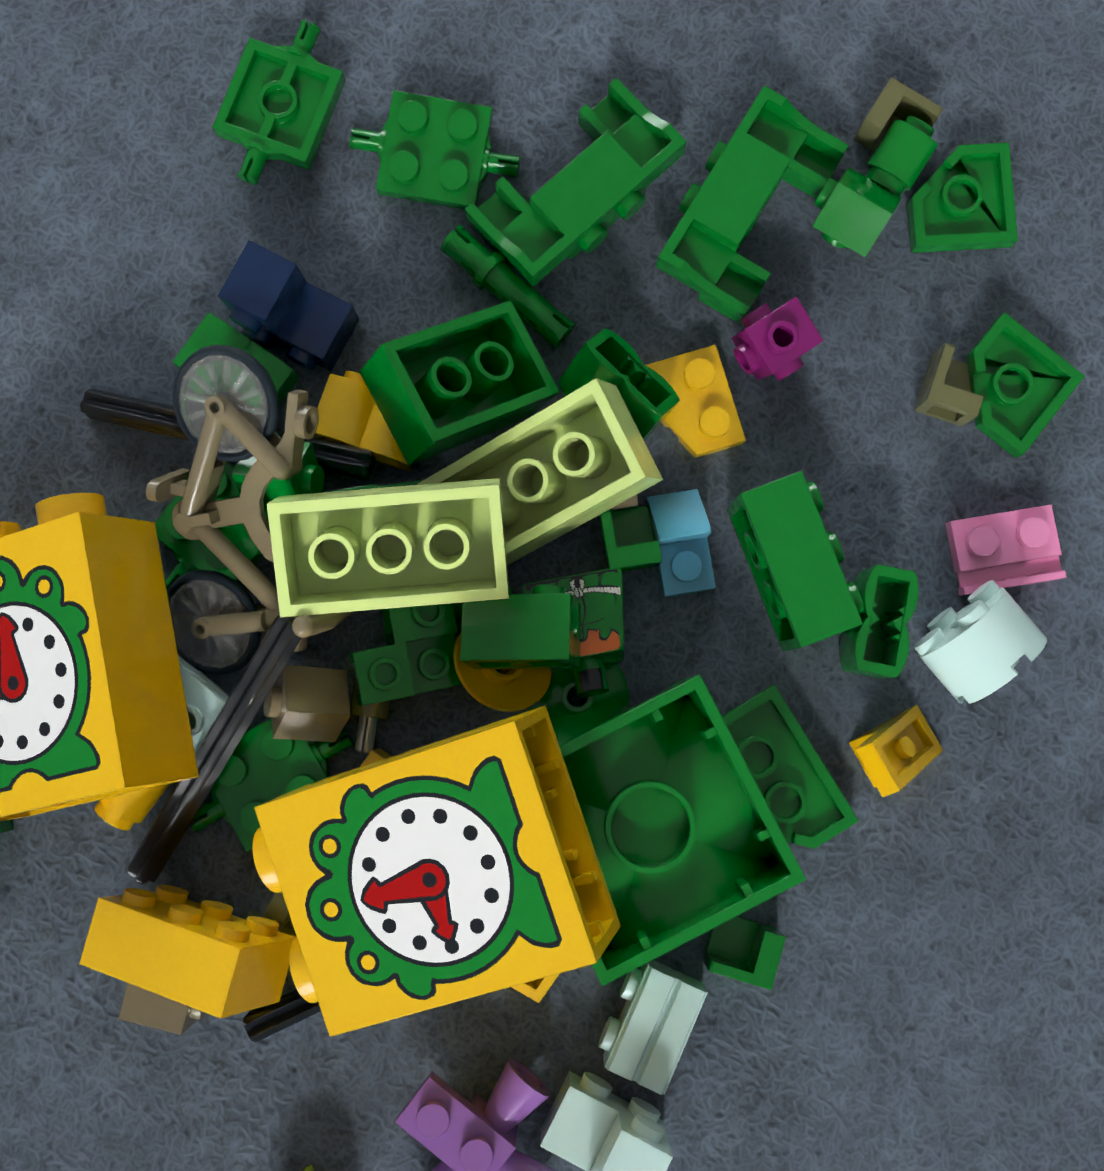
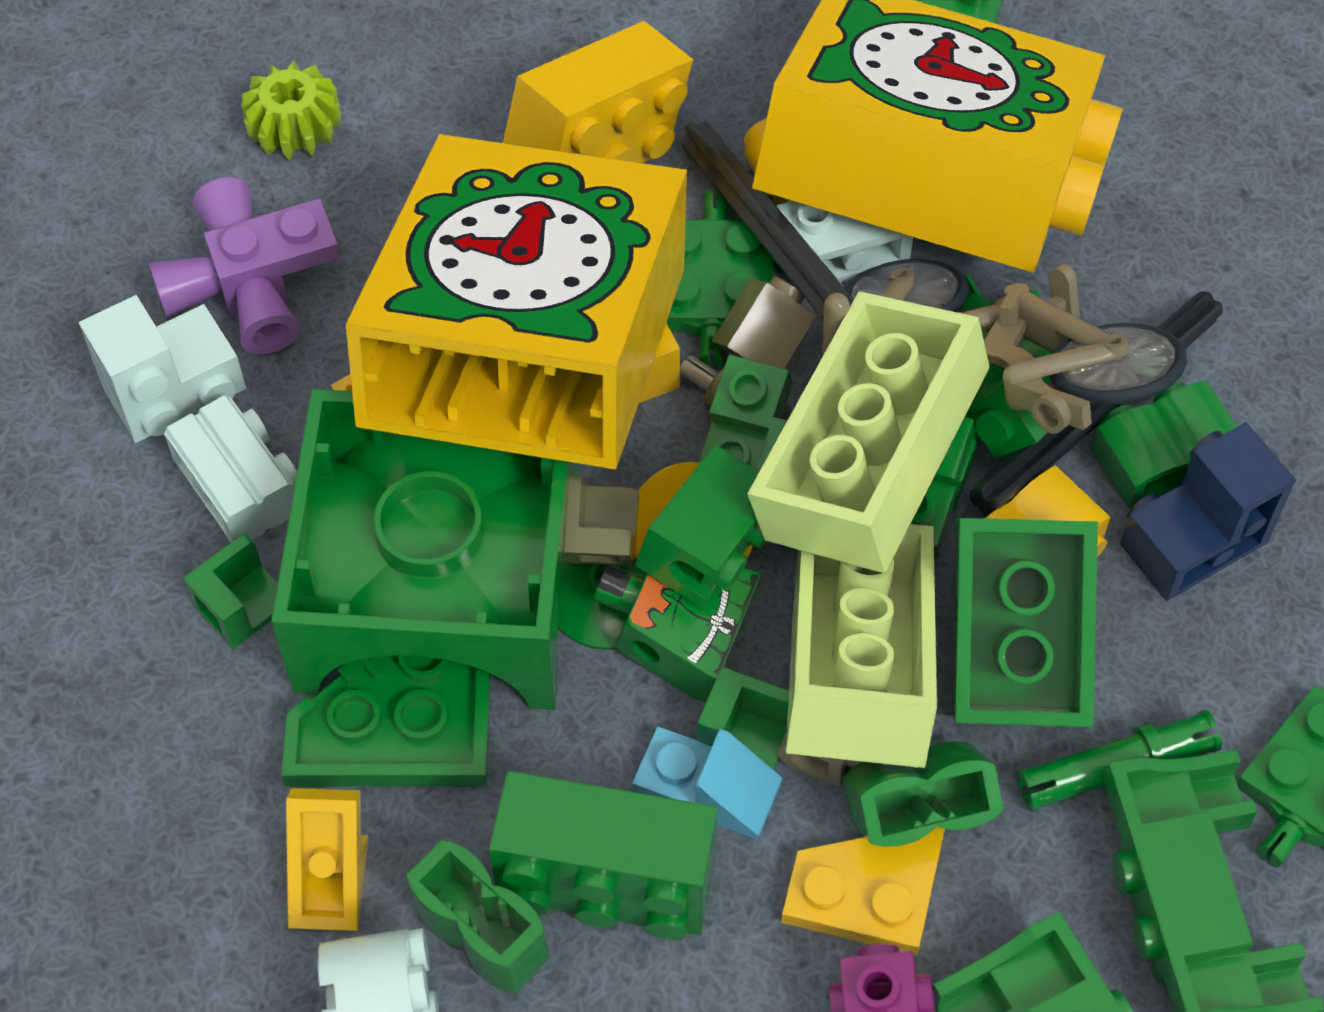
camera: 120 degrees right, 25 degrees down
(567, 708) = (600, 524): none -> olive panel

